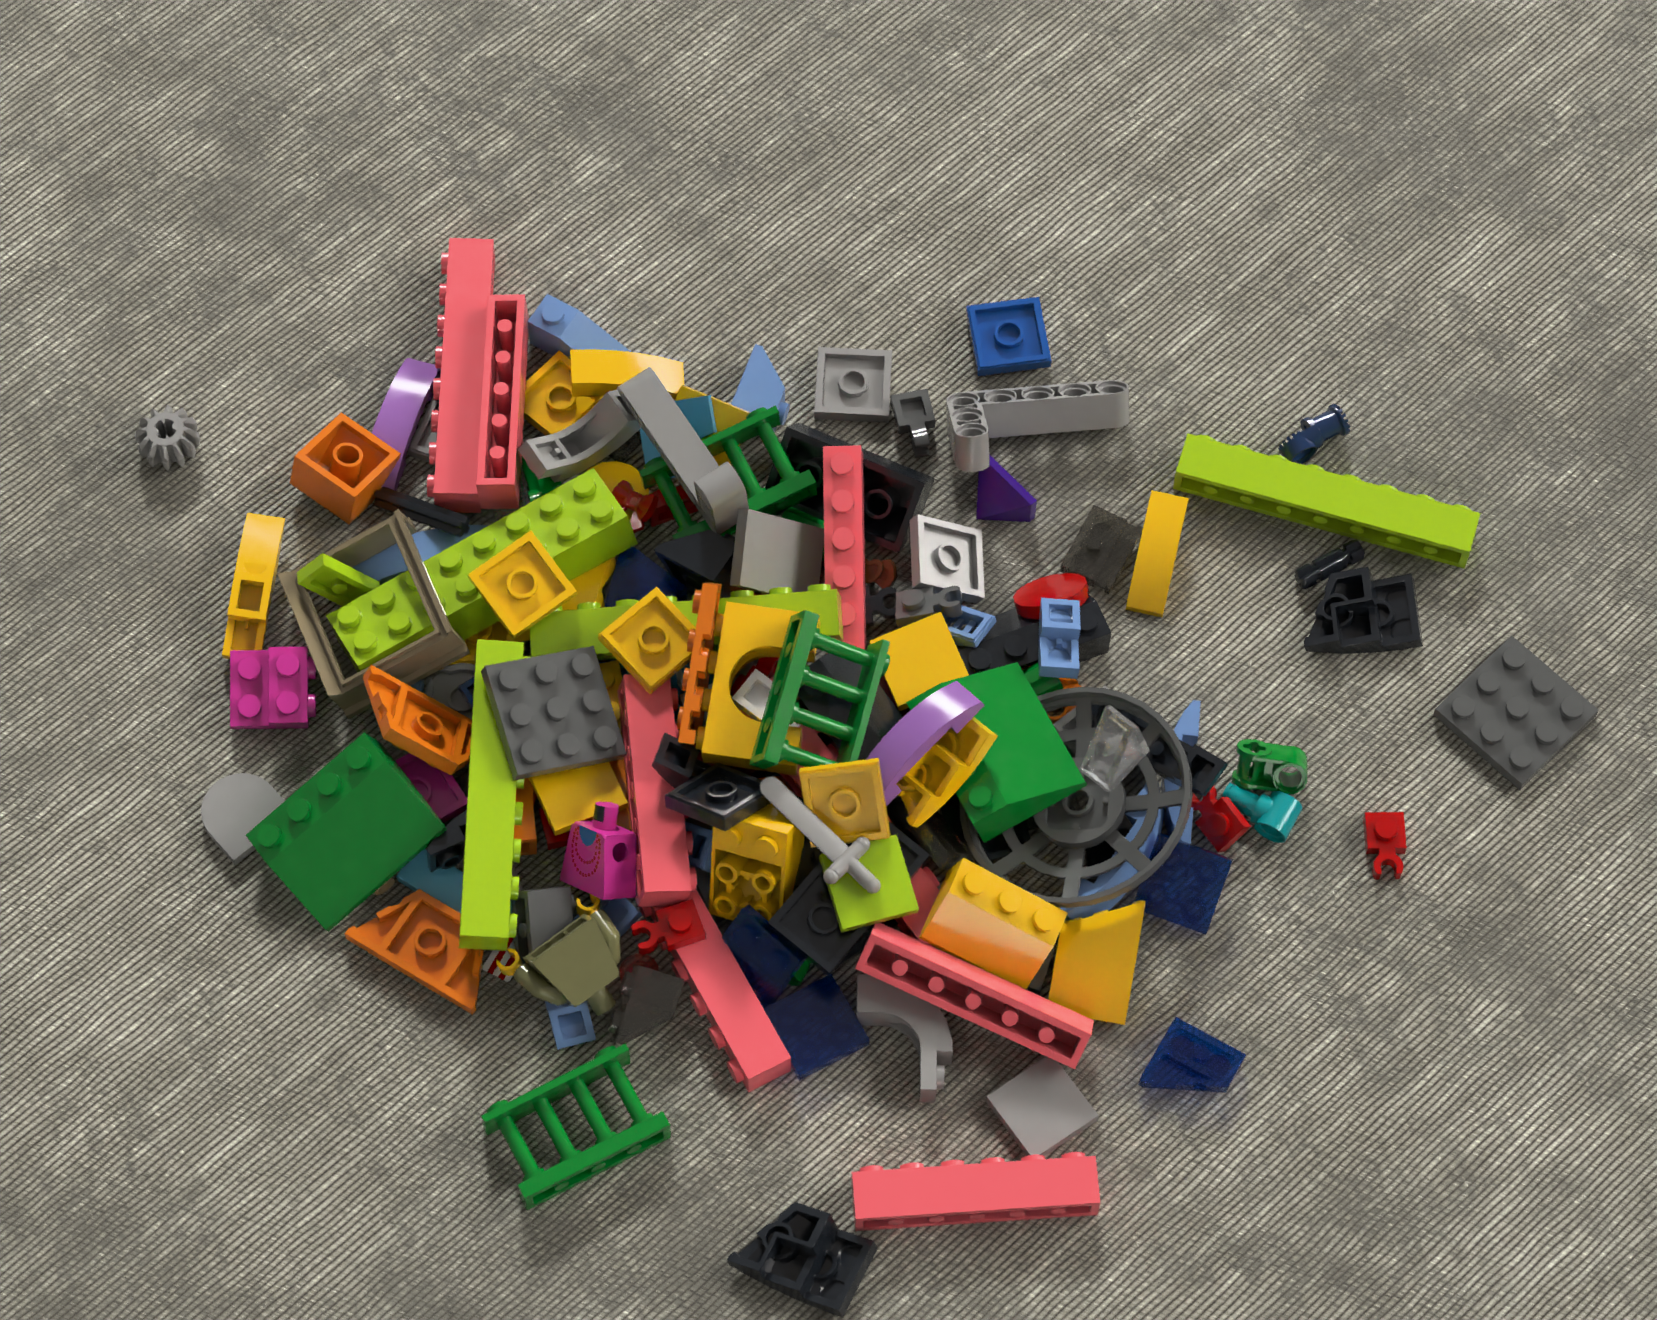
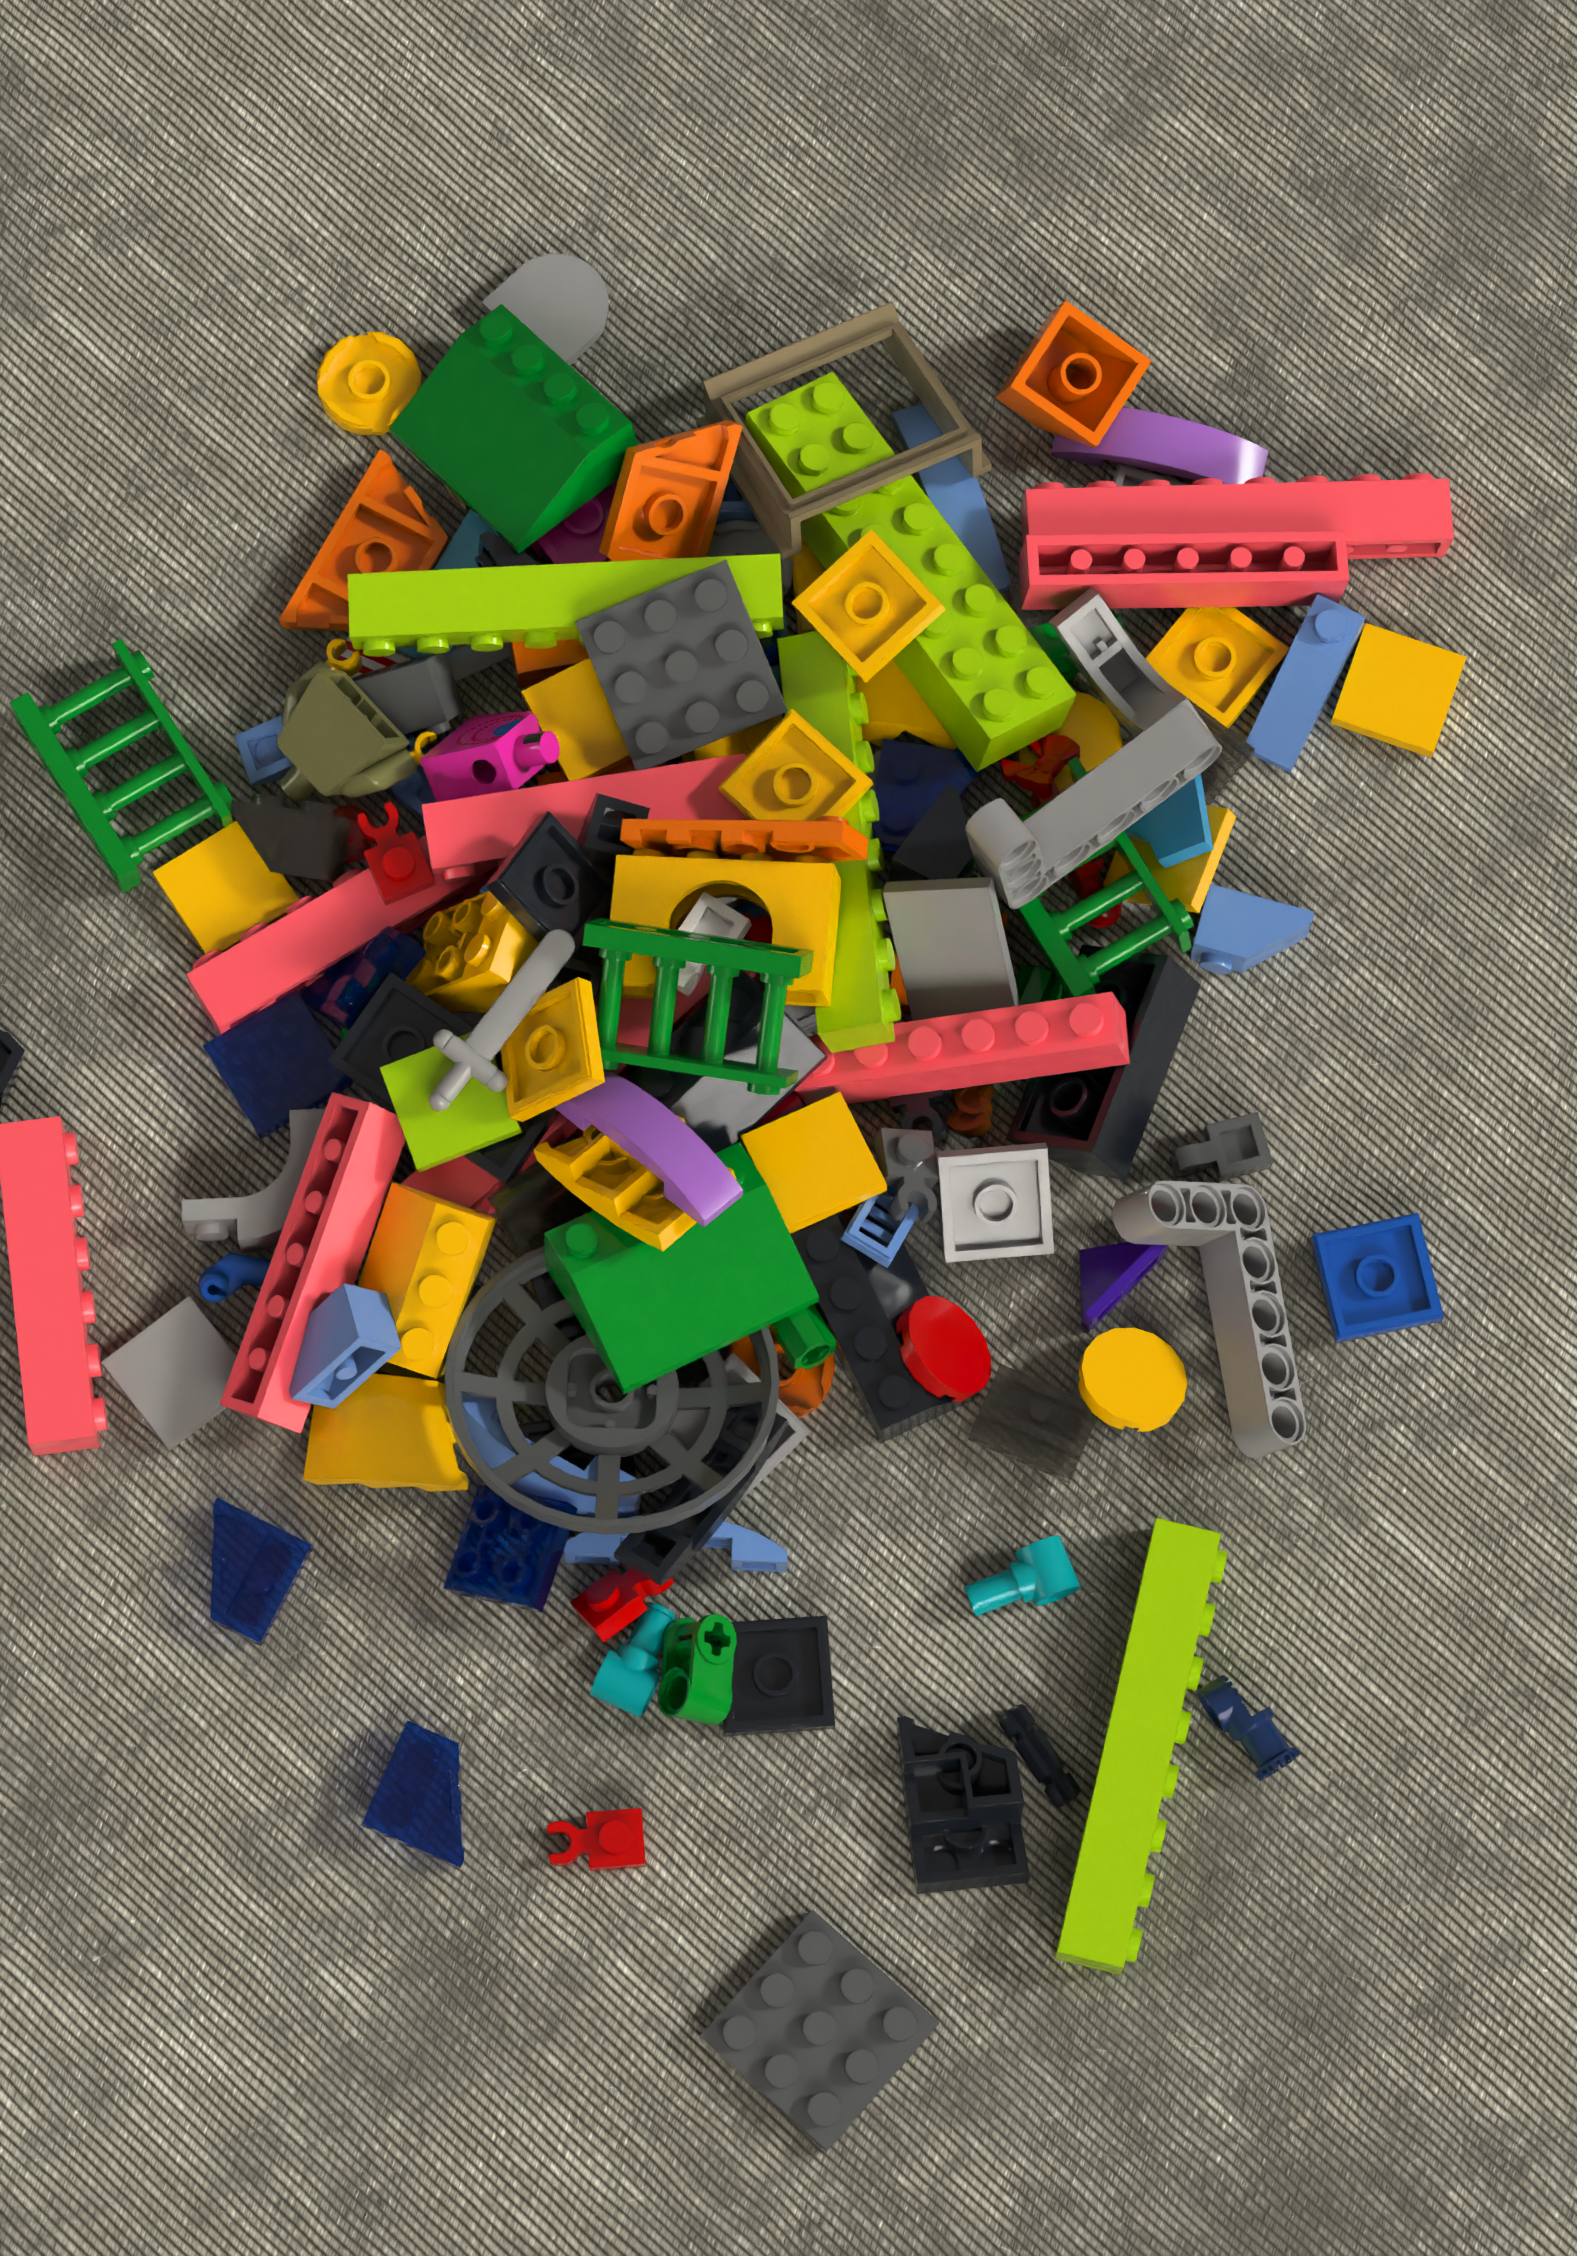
camera: 85 degrees right, 10 degrees up
(179, 433) = (1091, 134): light grey gear -> none
(253, 583) = (879, 274): yellow slope -> none
(271, 688) = (729, 316): dark pink plate -> none
(286, 944) = (367, 382): none -> yellow tile
(335, 580) = (885, 394): lime plate -> none
(422, 511) = (1011, 485): black axle -> none
(596, 287) = (1398, 690): none -> yellow tile
(602, 371) = (1243, 730): yellow slope -> none
(677, 1060) = (224, 889): none -> yellow tile
(853, 384) = (1280, 1063): light grey tile -> none
(967, 1065) = (230, 1275): none -> blue arm
(1038, 972) = (343, 1345): none -> medium blue slope
(1059, 638) = (855, 1349): medium blue slope -> none
(1074, 485) = (1132, 1379): none -> yellow tile
(1113, 750) = (664, 1421): clear slope -> none
(1157, 553) = (1030, 1501): yellow slope -> none
(1207, 554) = (1037, 1575): none -> teal pin
(1272, 717) = (781, 1677): none -> black tile
(1354, 955) = (420, 1796): none -> clear blue wing

